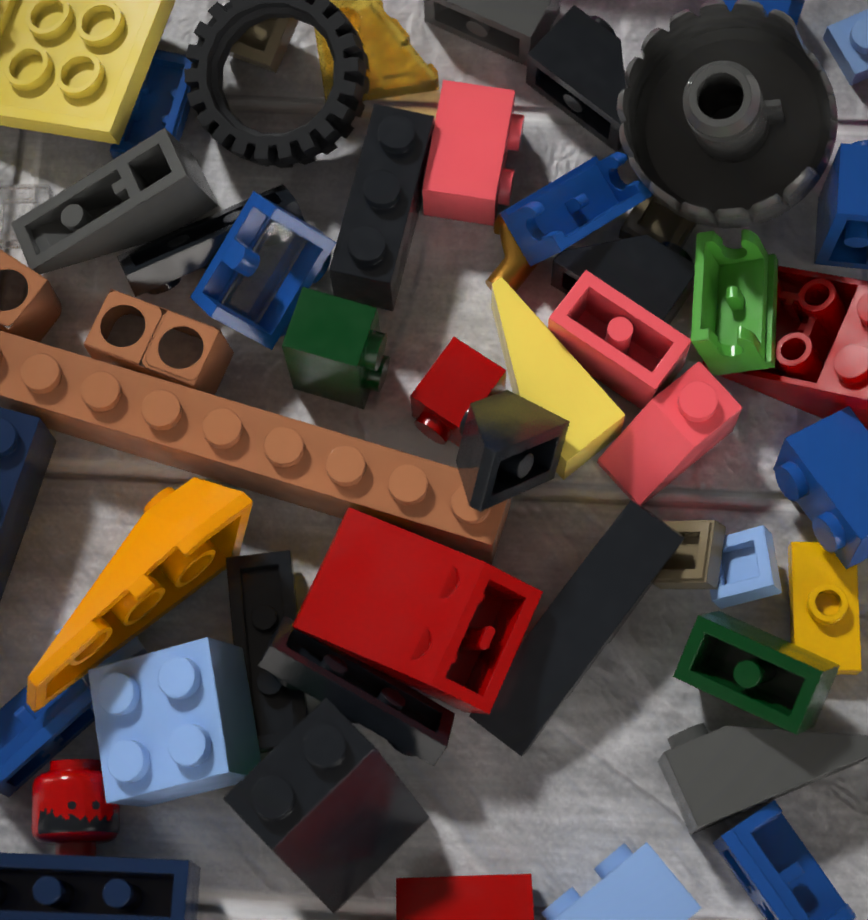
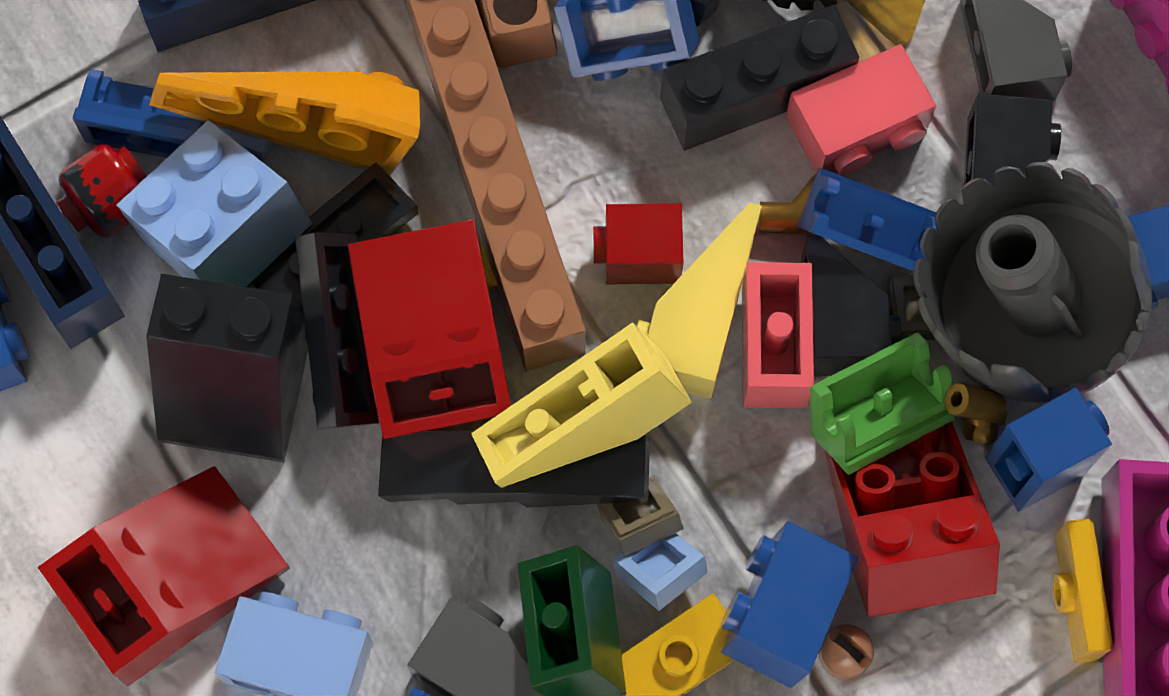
camera: 50 degrees right, 0 degrees up
(335, 348) = (602, 120): dark green brick -> none
(507, 448) = (607, 299): black slope -> none
(584, 535) = (584, 410): none -> light yellow slope
(670, 434) = (734, 435): coral slope -> none
(785, 238) = (982, 410): none -> pearl gold arm

